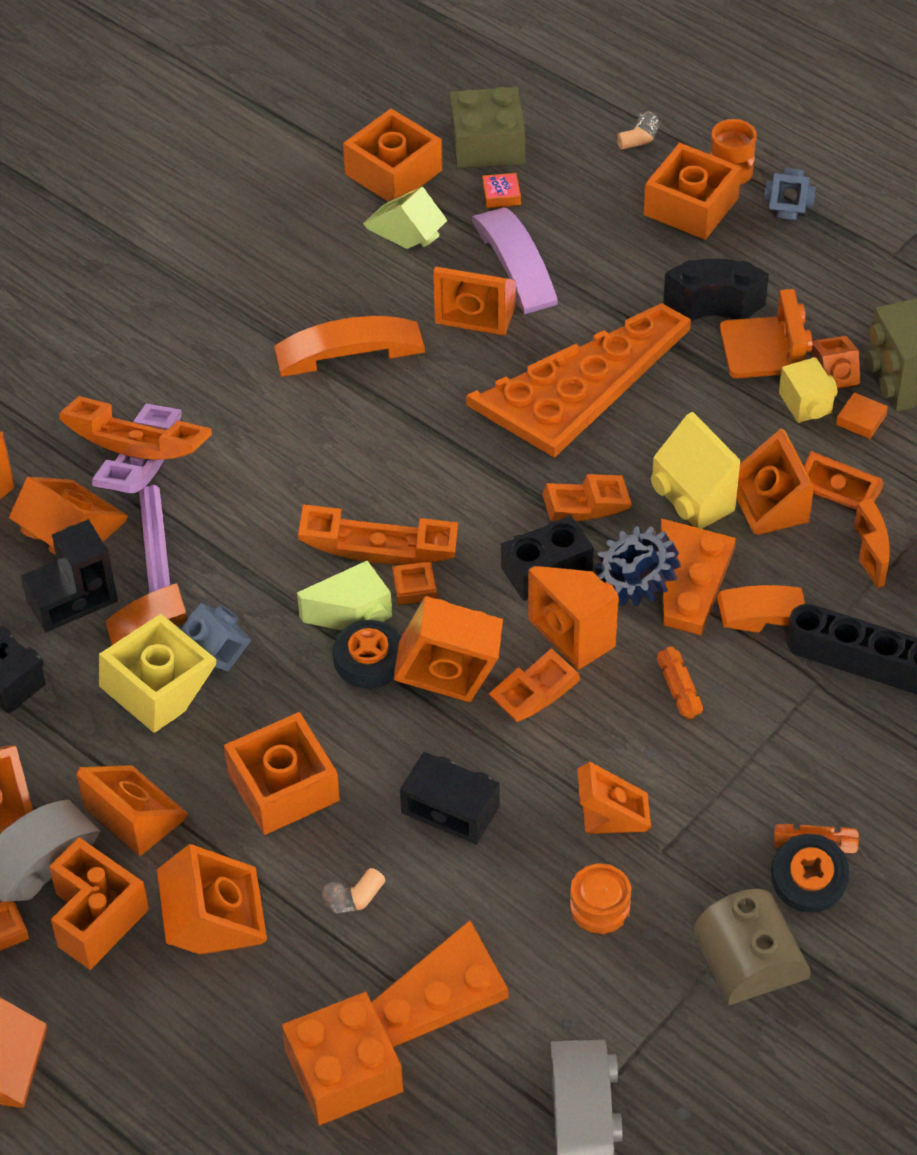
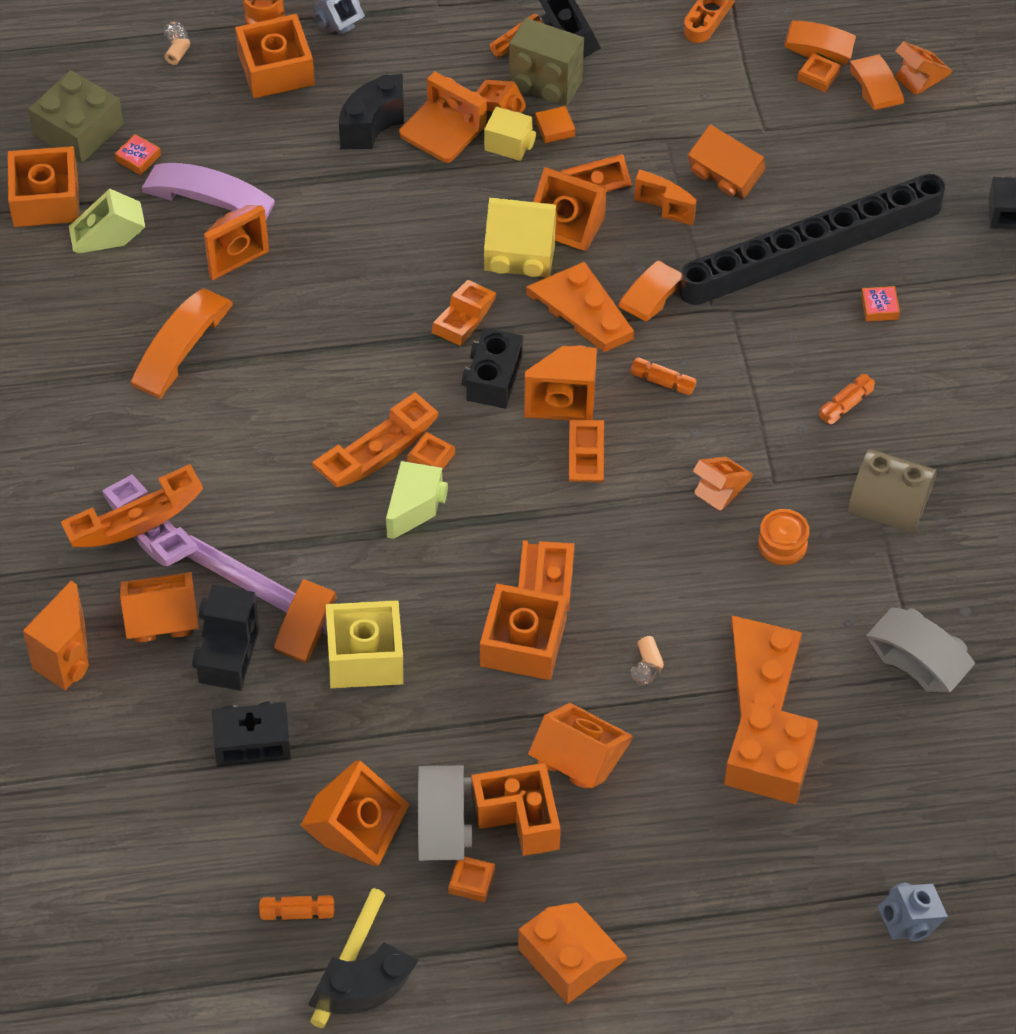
camera: 50 degrees left, 5 degrees up
(129, 805) = (454, 739): orange slope -> none
(217, 633) = (377, 584): sand blue brick -> none
(369, 639) = (476, 511): black wheel -> none
(370, 750) = (547, 568): none -> orange plate
(448, 649) = (528, 469): orange brick -> none
(450, 797) = (635, 556): black brick -> none
(579, 383) = (363, 247): orange wing -> none
(638, 564) = (551, 312): dark blue gear -> none
(802, 887) = (862, 428): black wheel -> none

